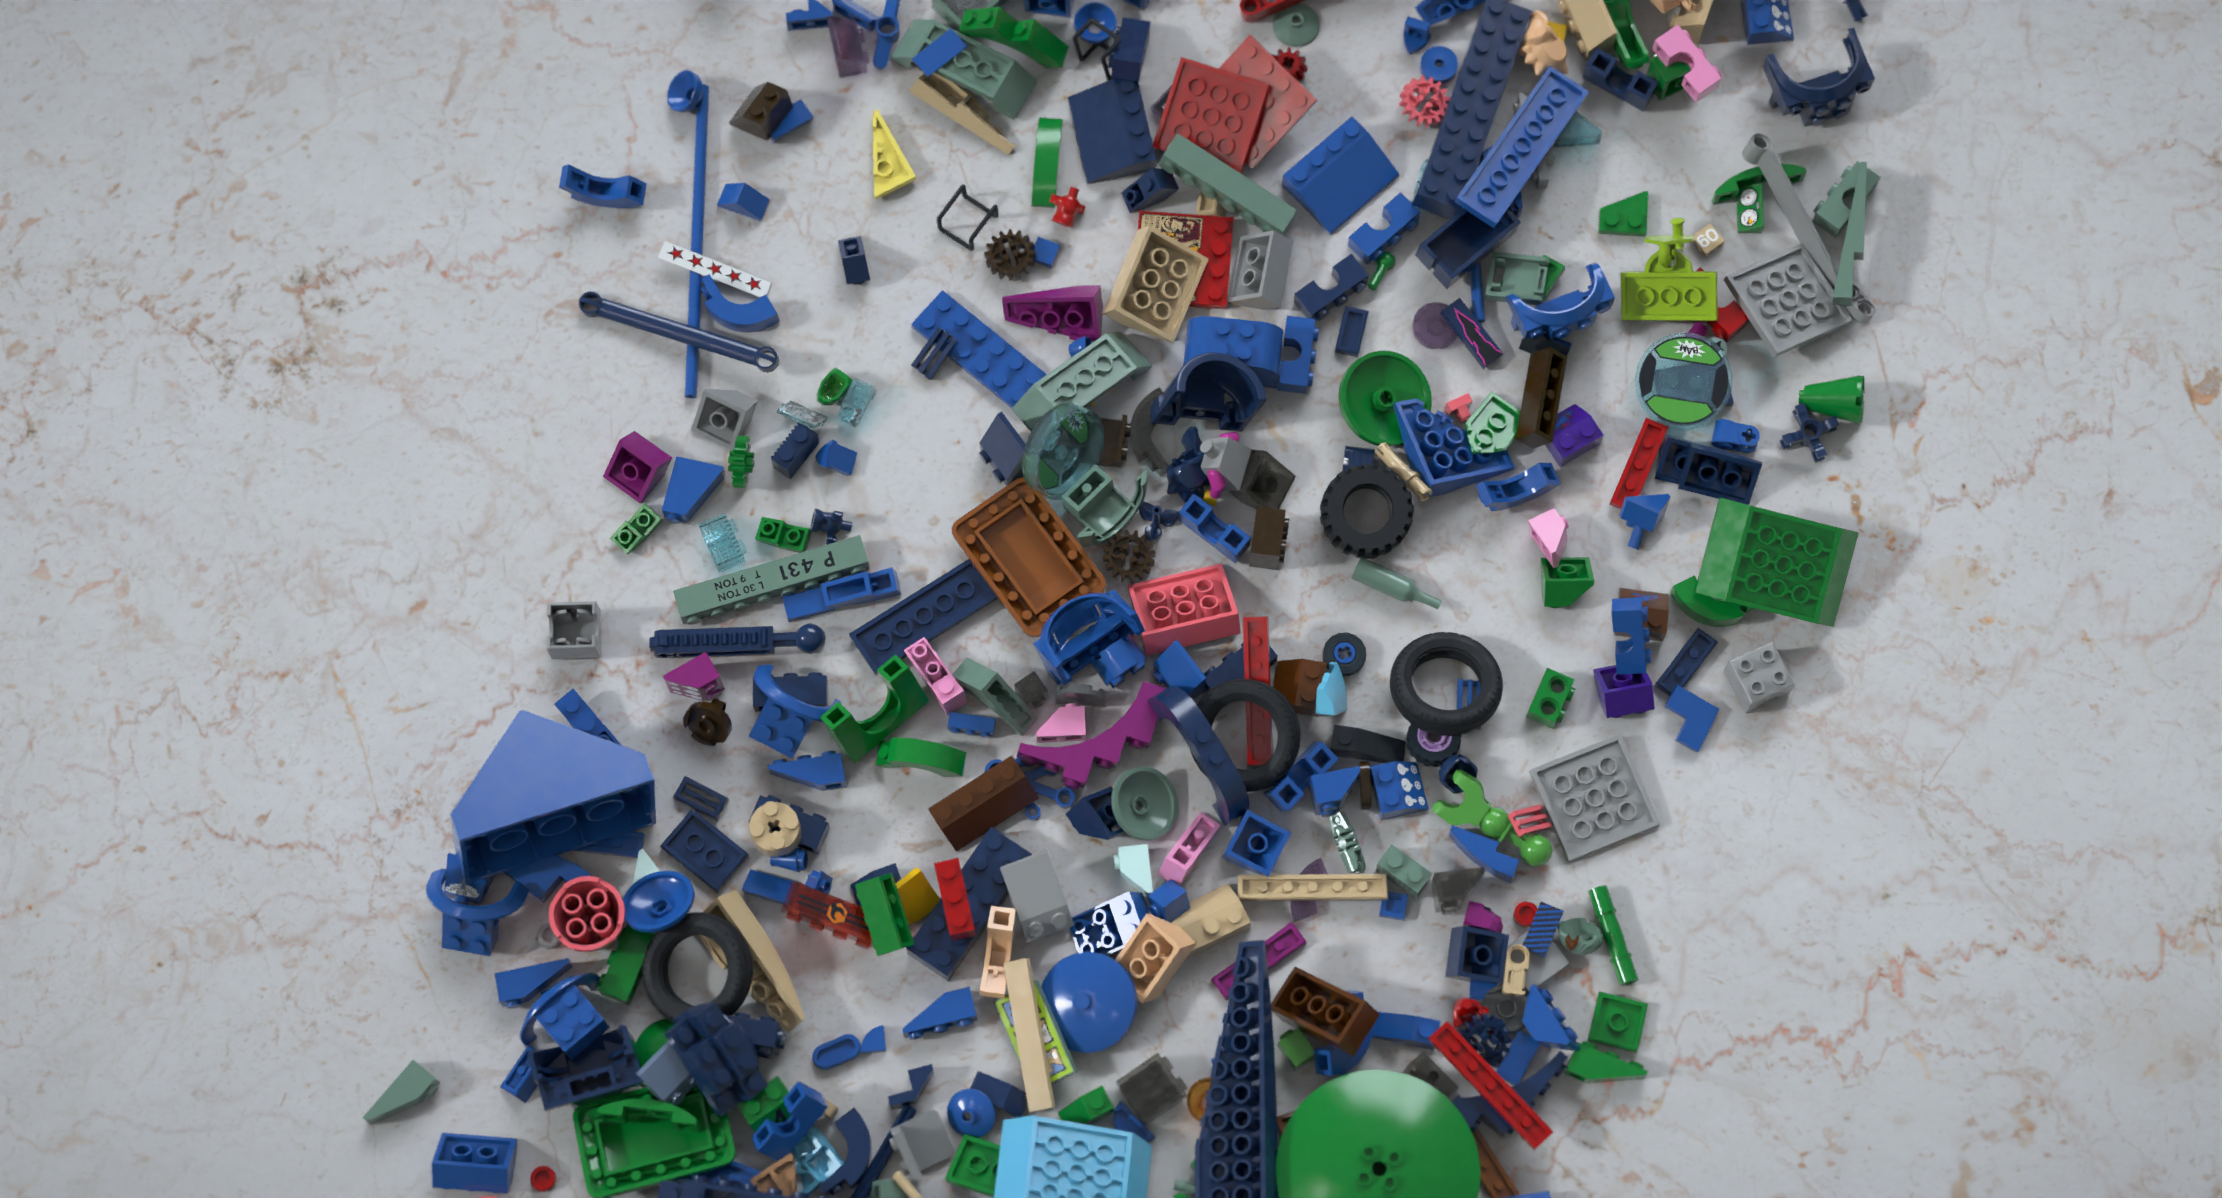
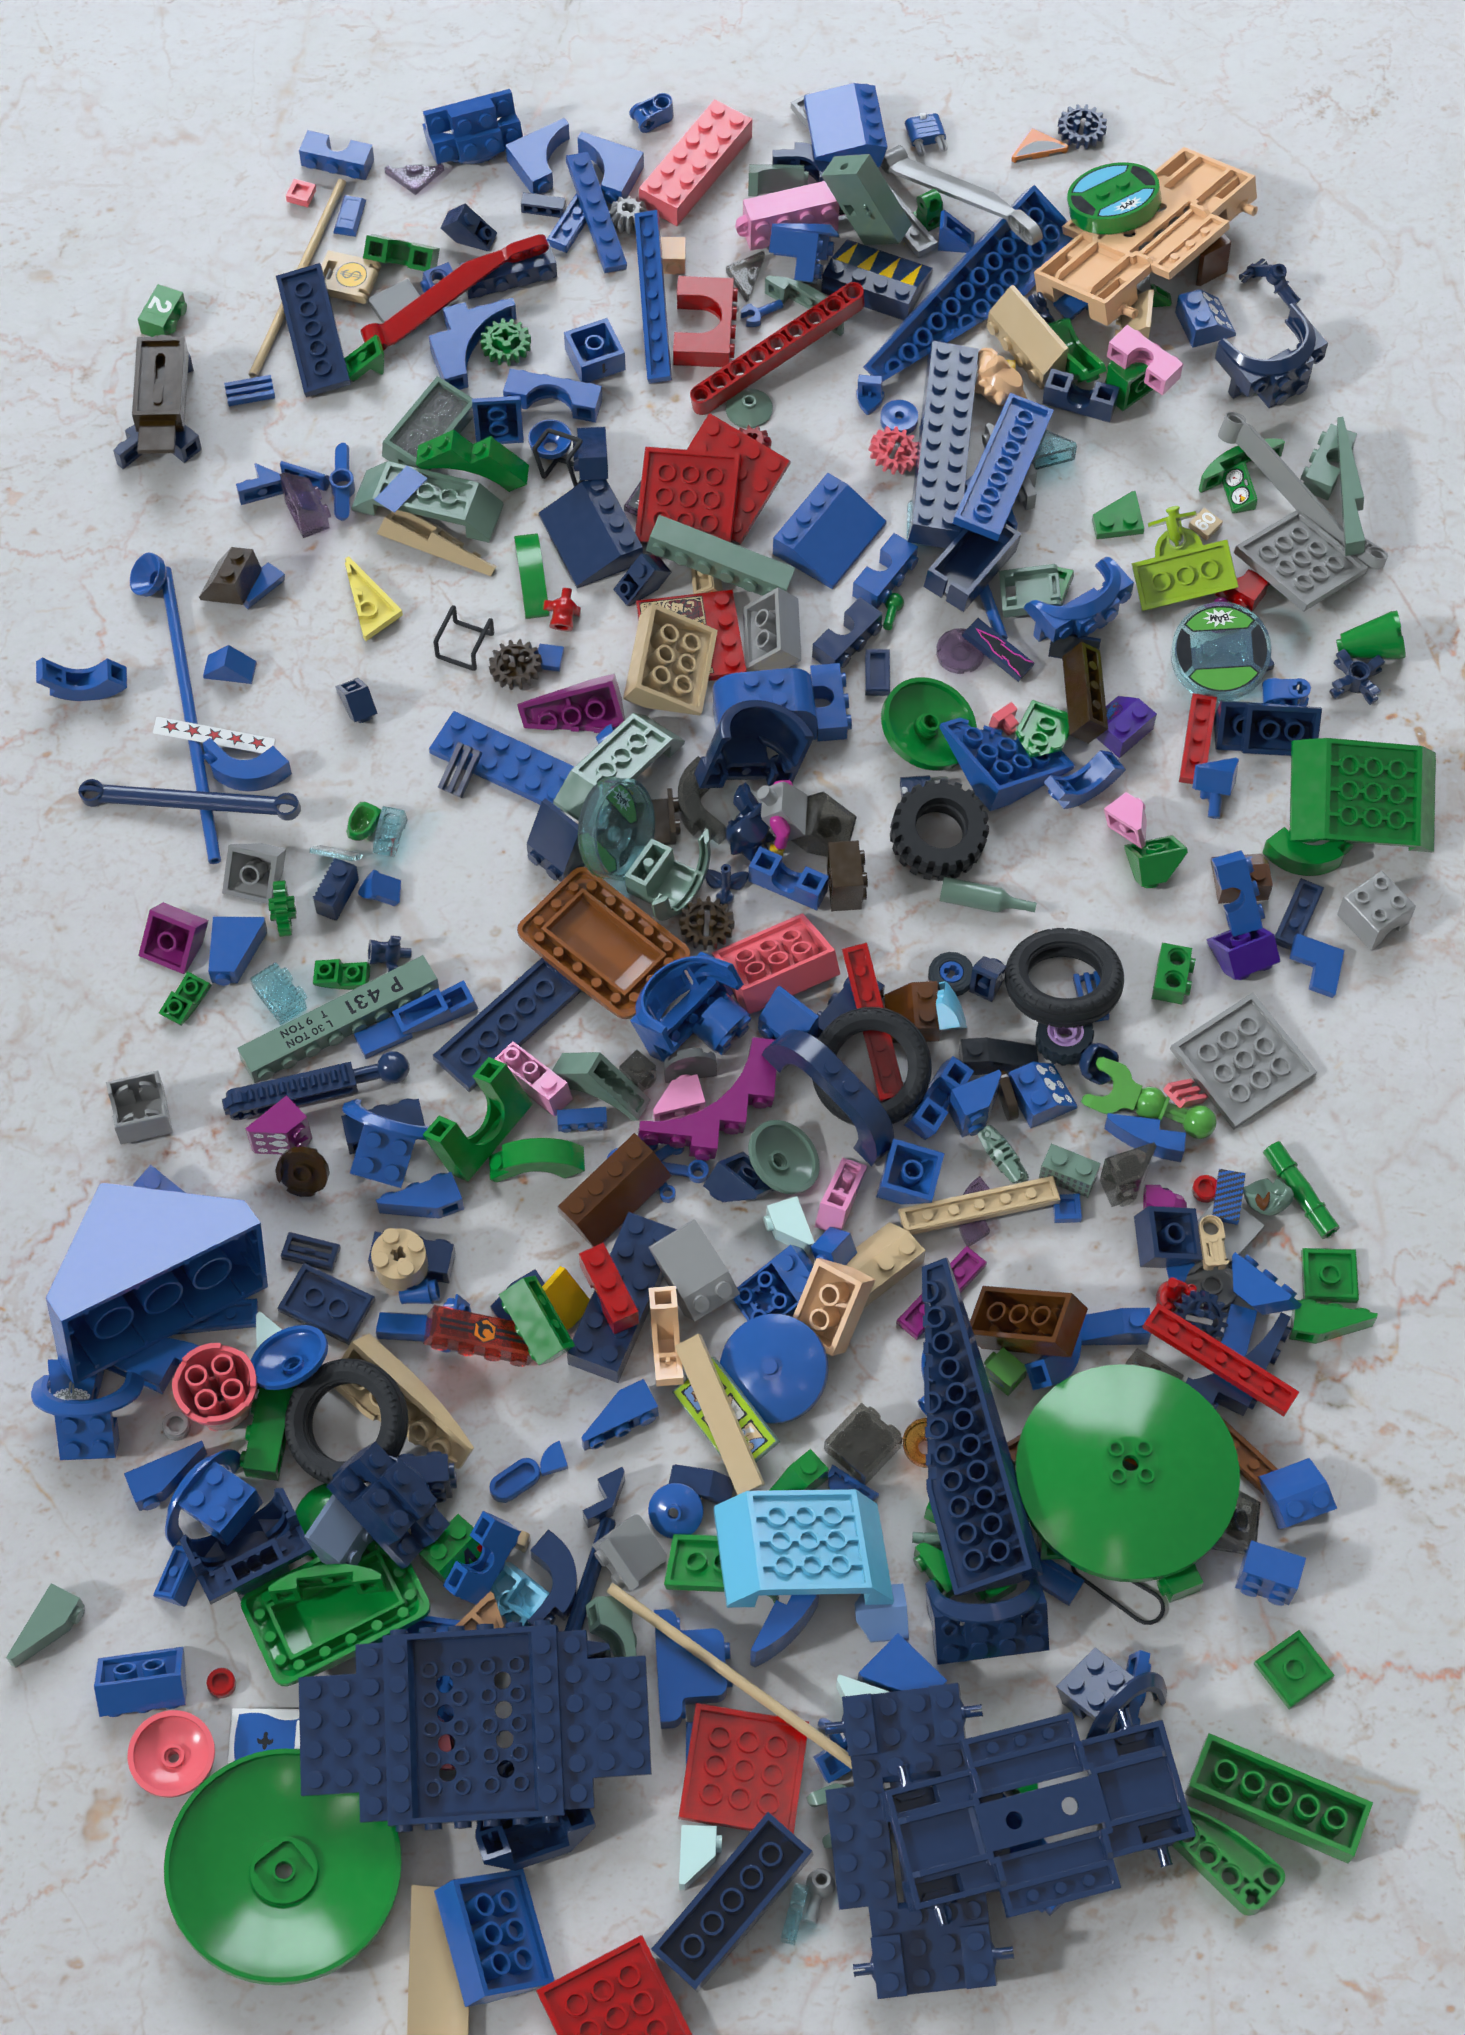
camera: 15 degrees left, 10 degrees down
(1376, 665) = (987, 978): none -> dark blue slope
(1410, 477) = (978, 788): tan pin -> none

